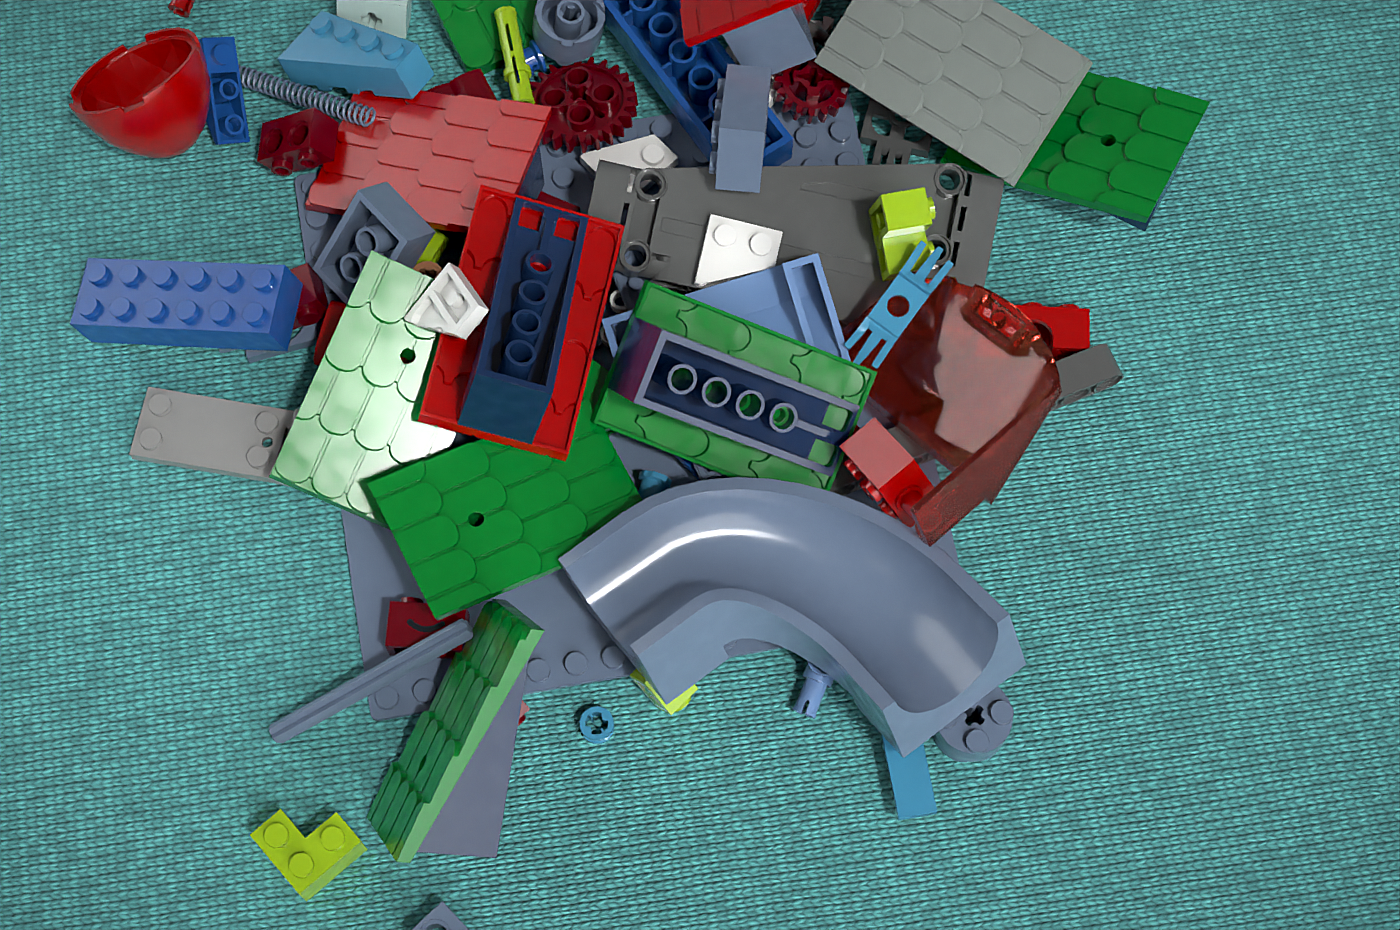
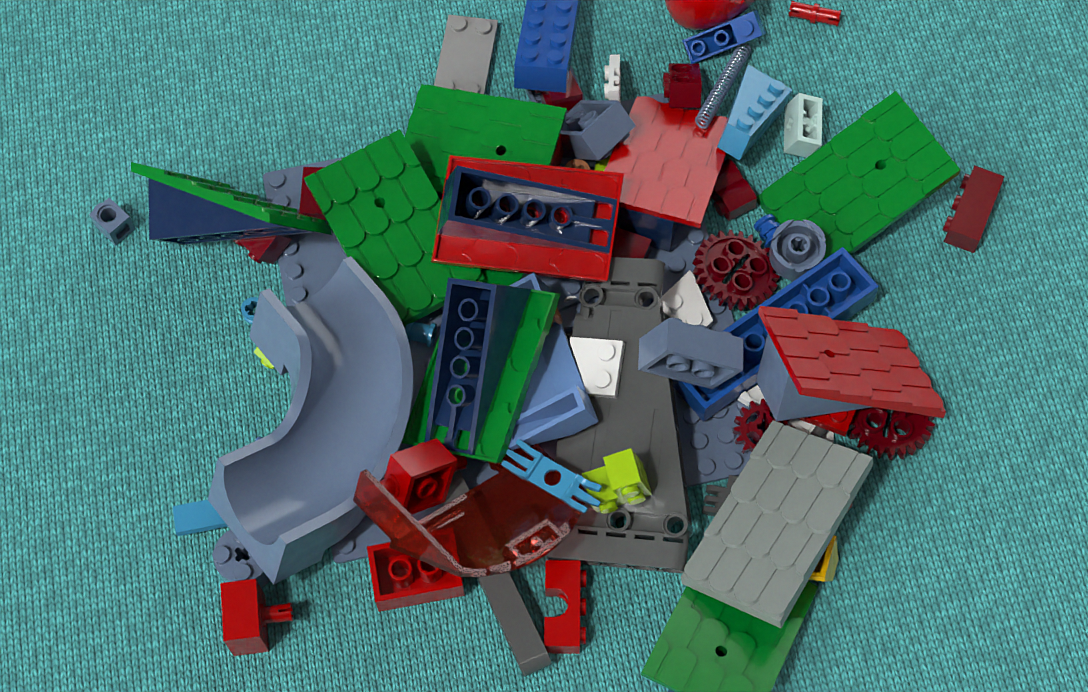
camera: 90 degrees right, 5 degrees down
(292, 230) = (613, 75): none -> white wing
(311, 860) = (168, 138): lime brick -> none
(371, 681) = (281, 164): sand blue axle -> none
(449, 305) = (524, 159): white wing -> none
(506, 24) = (755, 219): lime pin -> none
(1002, 529) = (407, 581): none -> red brick
(1056, 707) = (247, 616): none -> red brick

